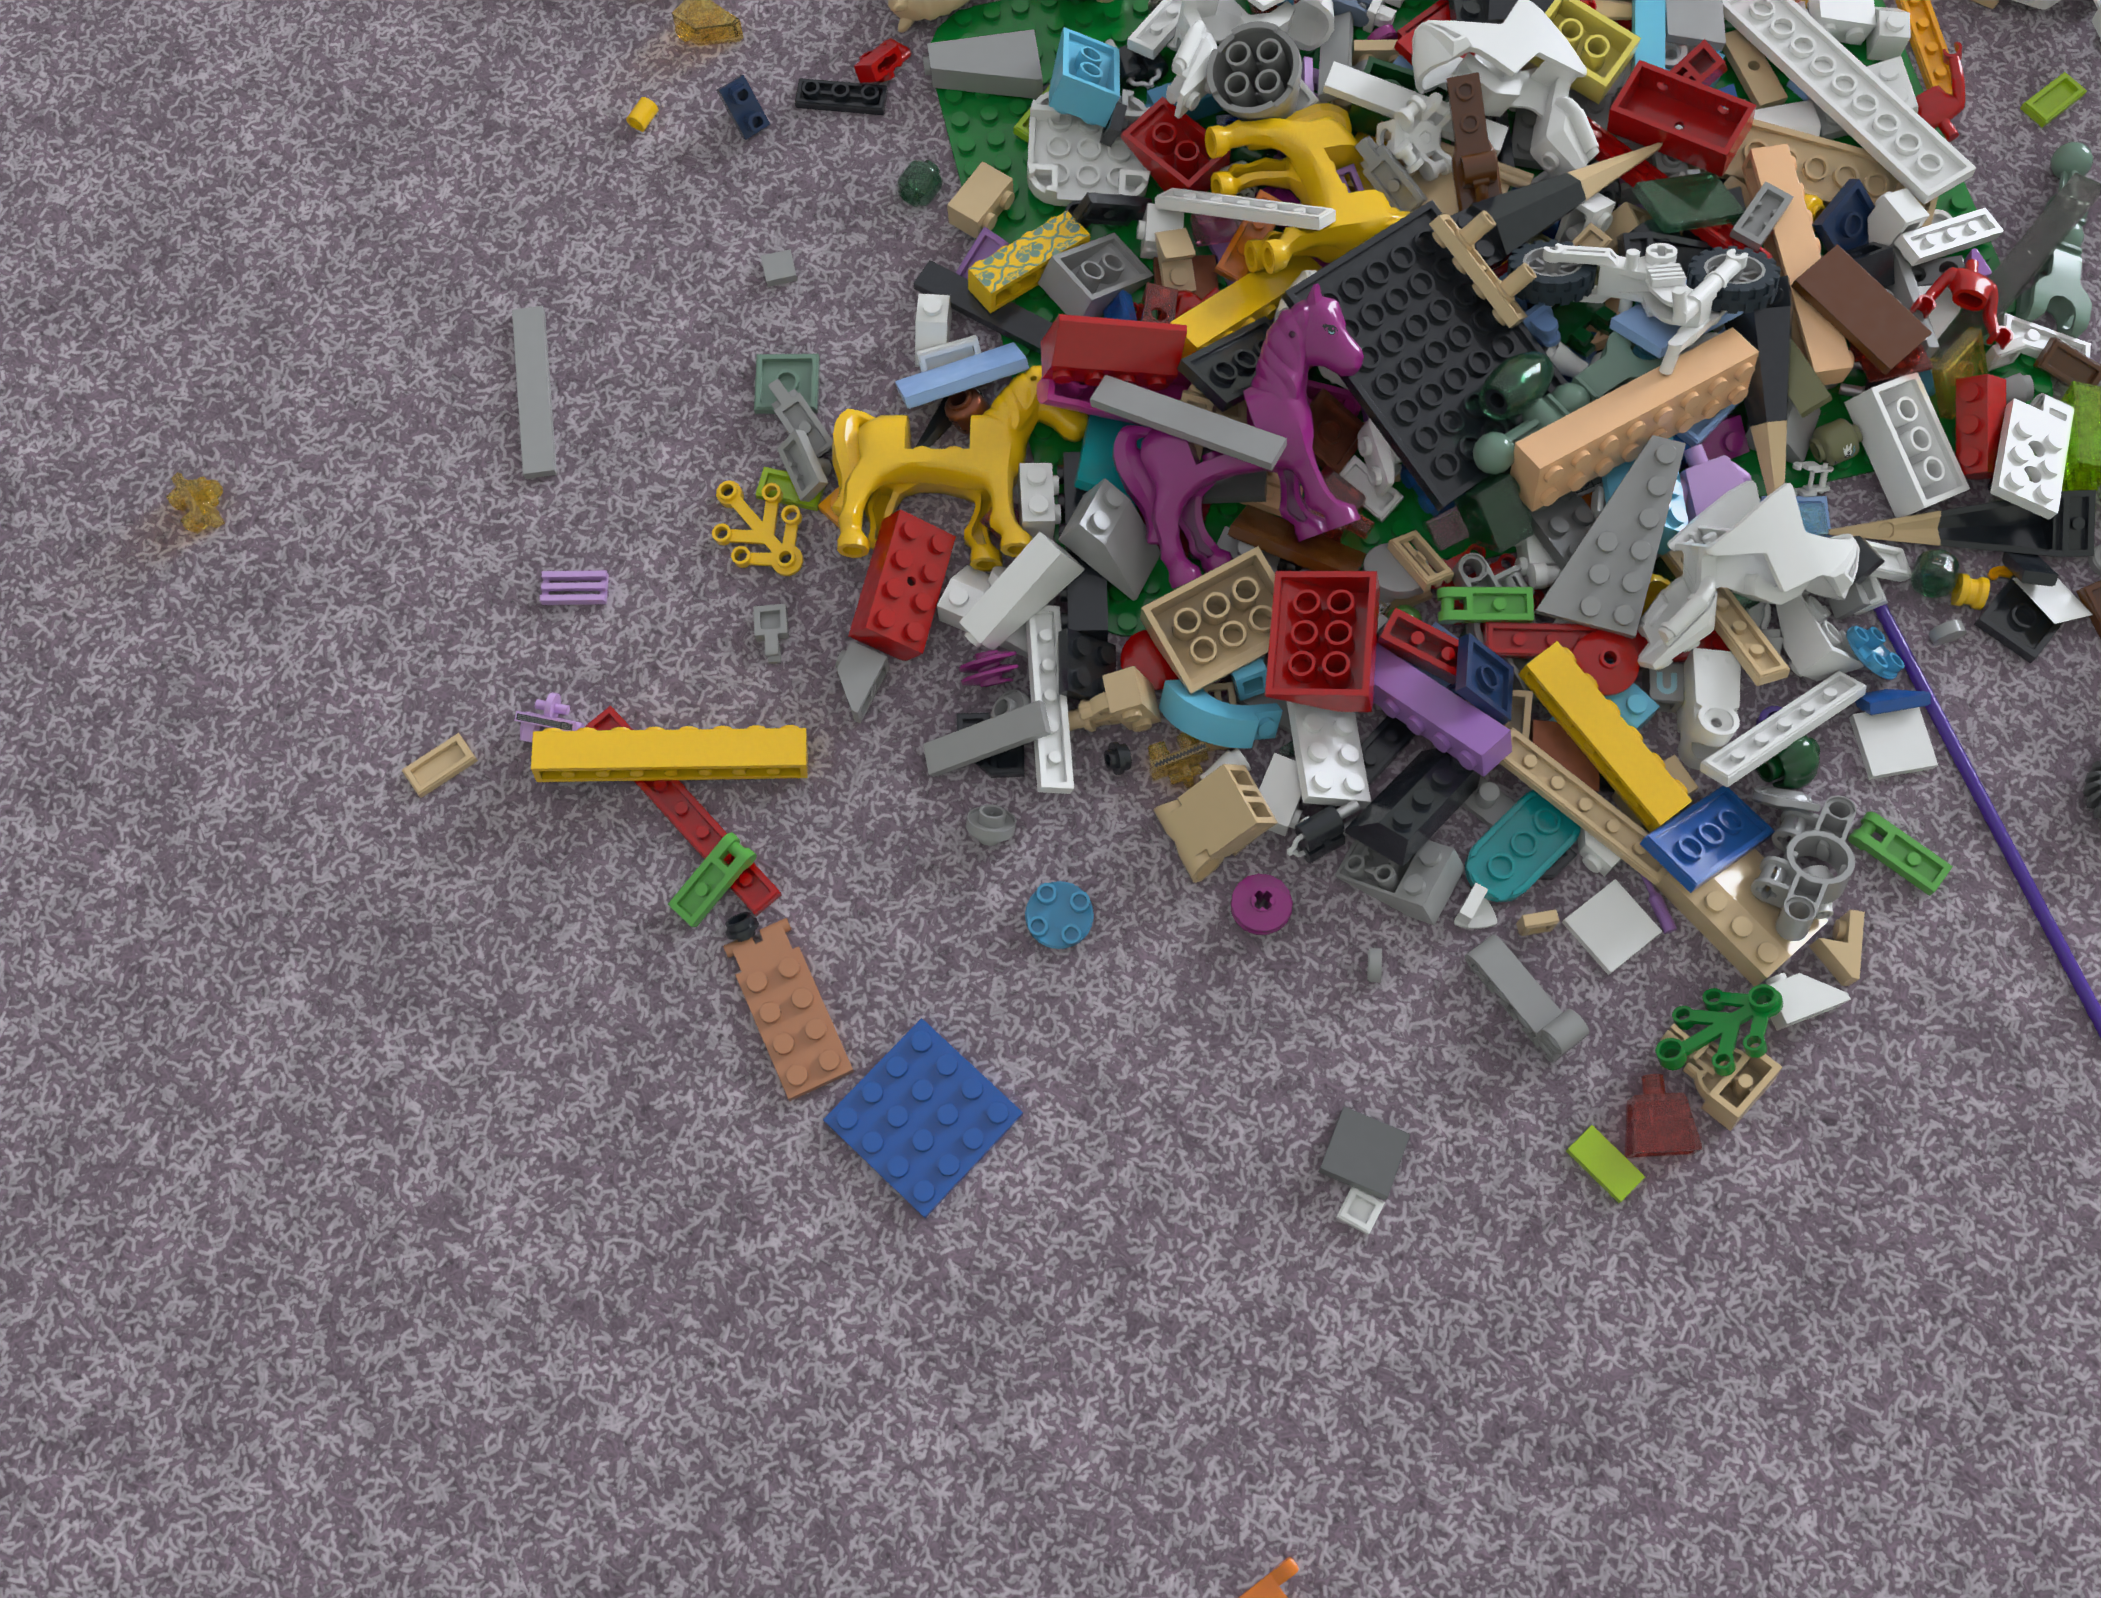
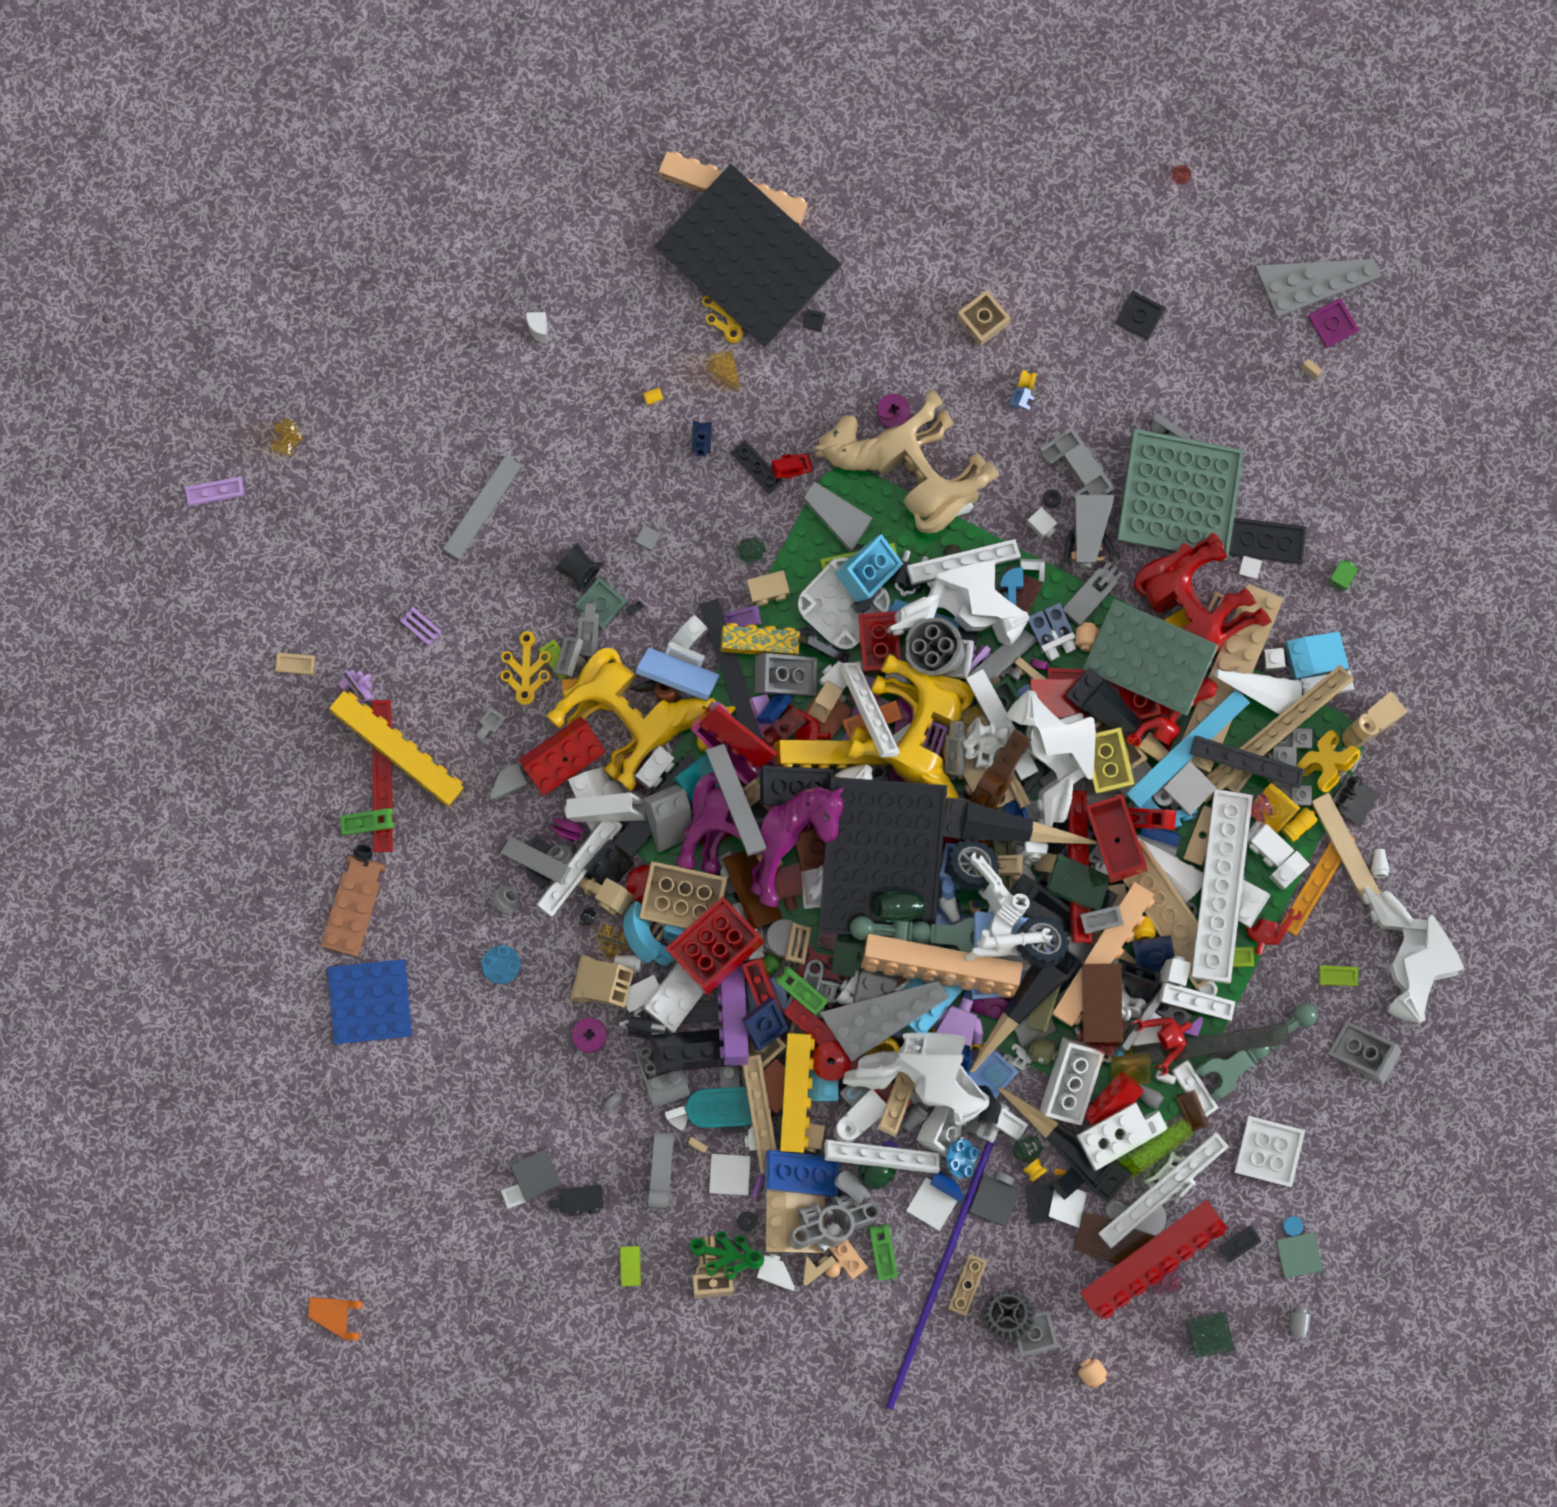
camera: 35 degrees right, 10 degrees up
(148, 642) = (214, 491): none -> lavender tile
(425, 135) = (538, 326): none -> white brick
(720, 354) = (578, 567): none -> black hat
(835, 356) = (633, 609): none -> black tile
(1455, 1132) = (579, 1199): none -> black hinge
(1469, 261) = (934, 838): tan plate -> none
(1659, 1122) = (667, 1269): clear red torso -> none
(1700, 959) = (742, 1216): none -> black plate
(1877, 901) = (847, 1259): none -> light nougat plate
(1960, 672) = (994, 1201): none -> dark grey tile
(2047, 820) = (963, 1297): none -> tan tile

